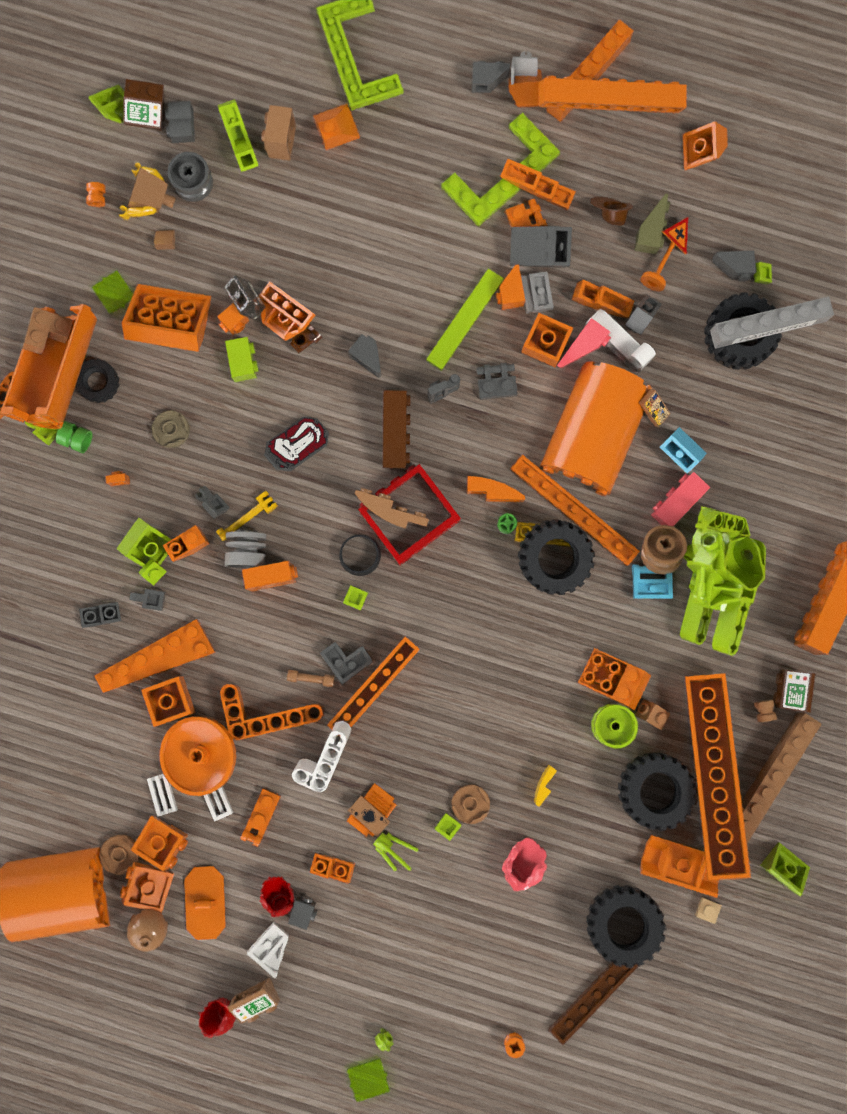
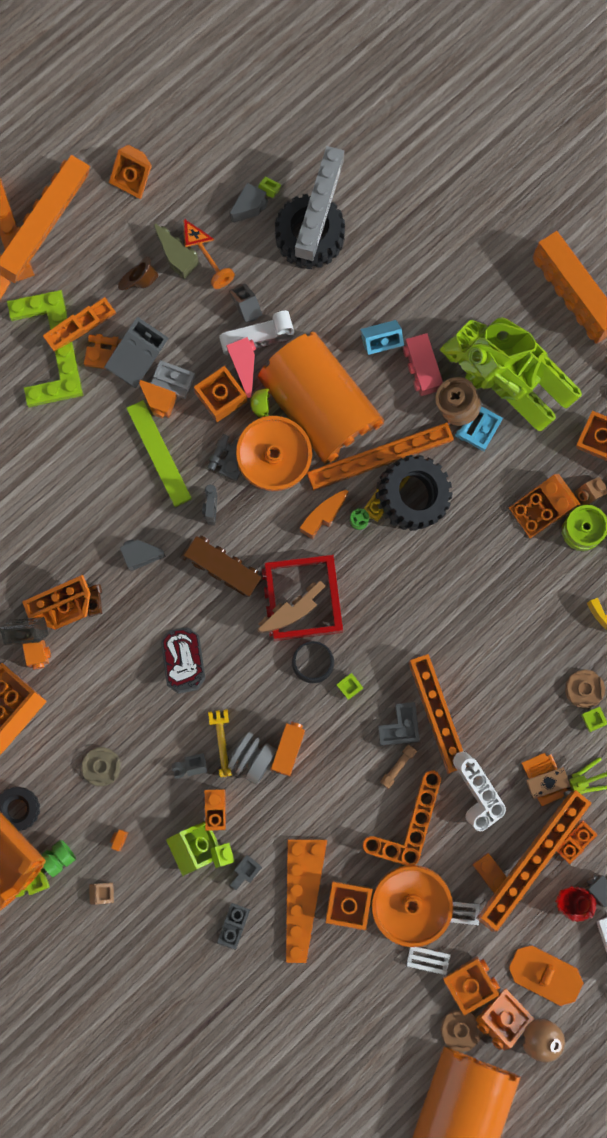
camera: 60 degrees left, 5 degrees down
(67, 491) = (101, 893): none -> medium nougat slope
(241, 359) = (77, 666): lime brick -> none
(292, 839) = (533, 861): none -> orange brick
(521, 416) = (274, 453): none -> orange dish
(560, 379) = (260, 403): none -> lime hair
(602, 298) = (211, 328): orange slope -> none
(654, 407) = (332, 339): tile -> none

